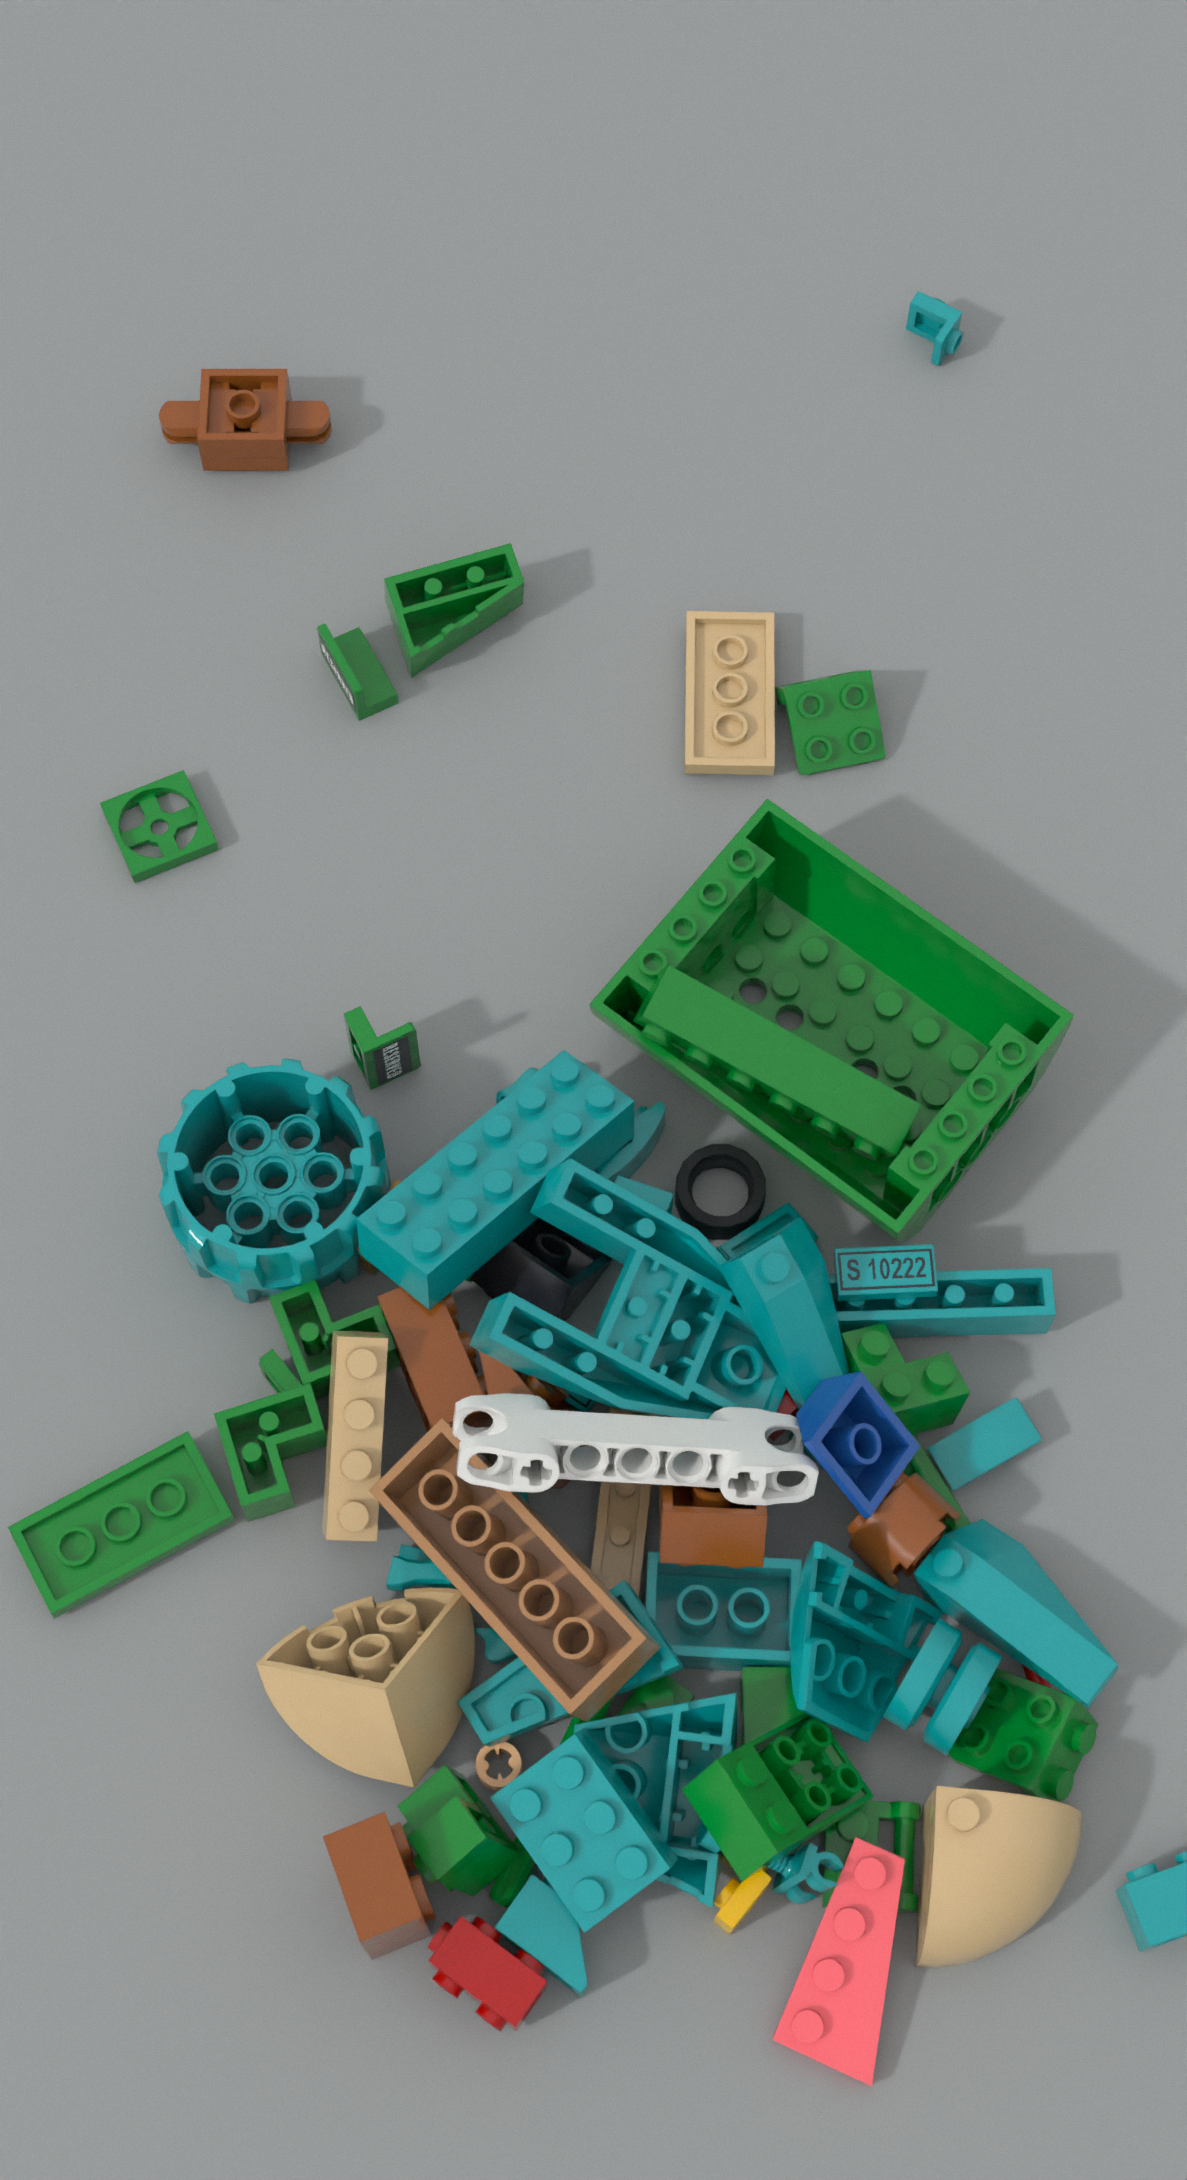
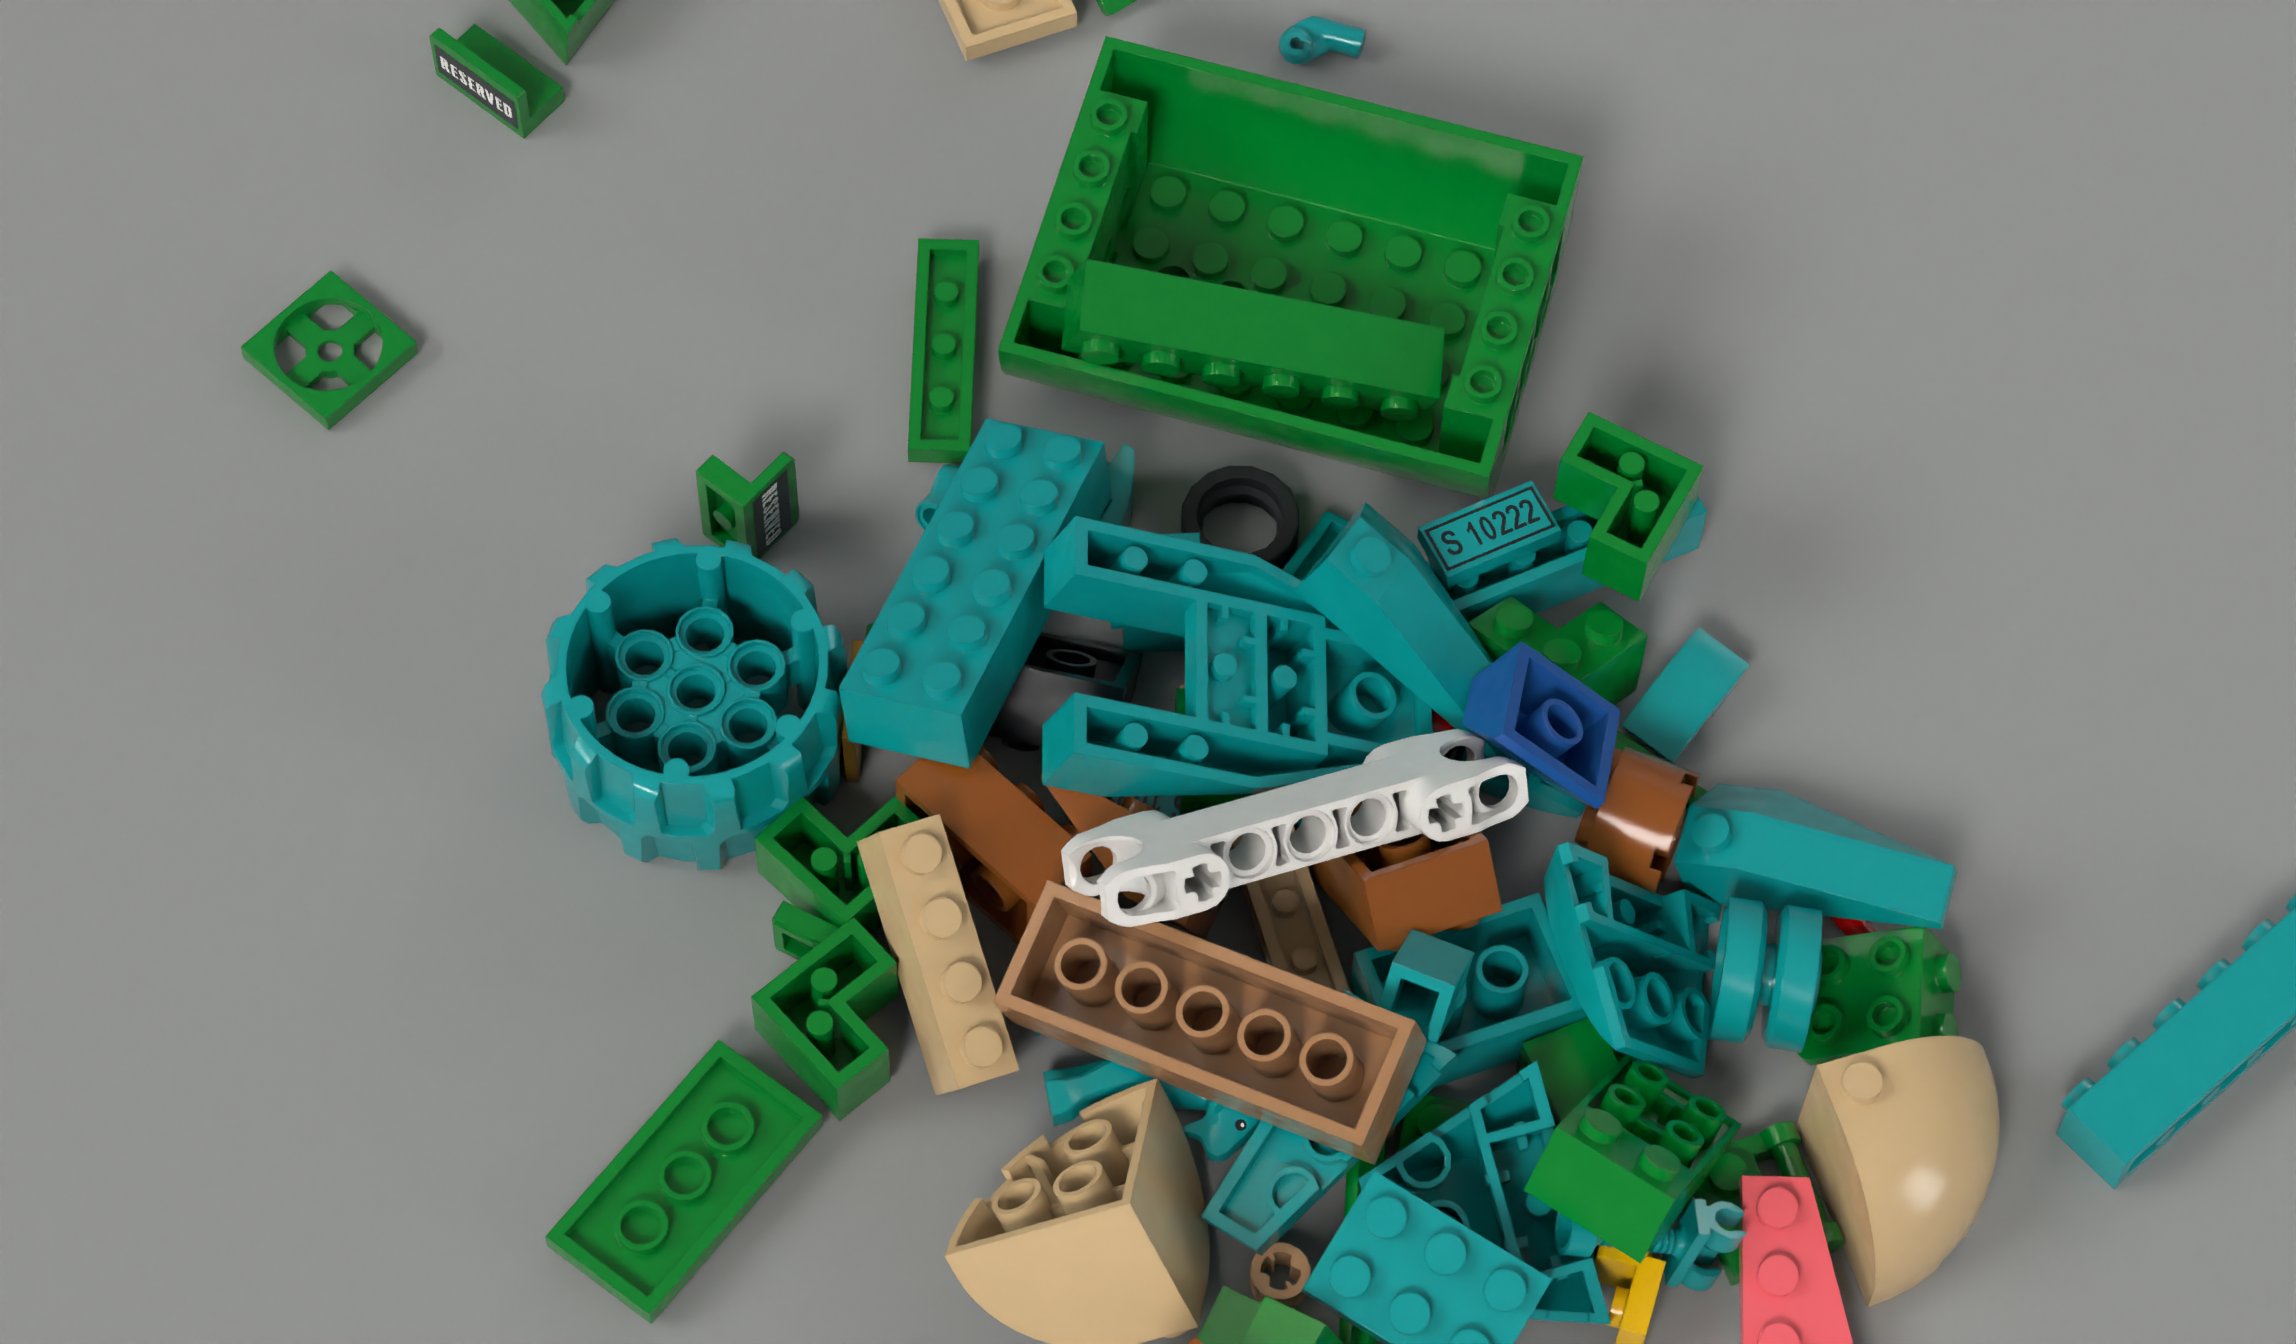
camera: 25 degrees left, 5 degrees down
(571, 980) = (943, 350): none -> green plate
(678, 1603) = (1426, 982): none -> teal brick
(940, 844) = (1318, 36): none -> teal arm
(1003, 1290) = (1636, 495): none -> green brick

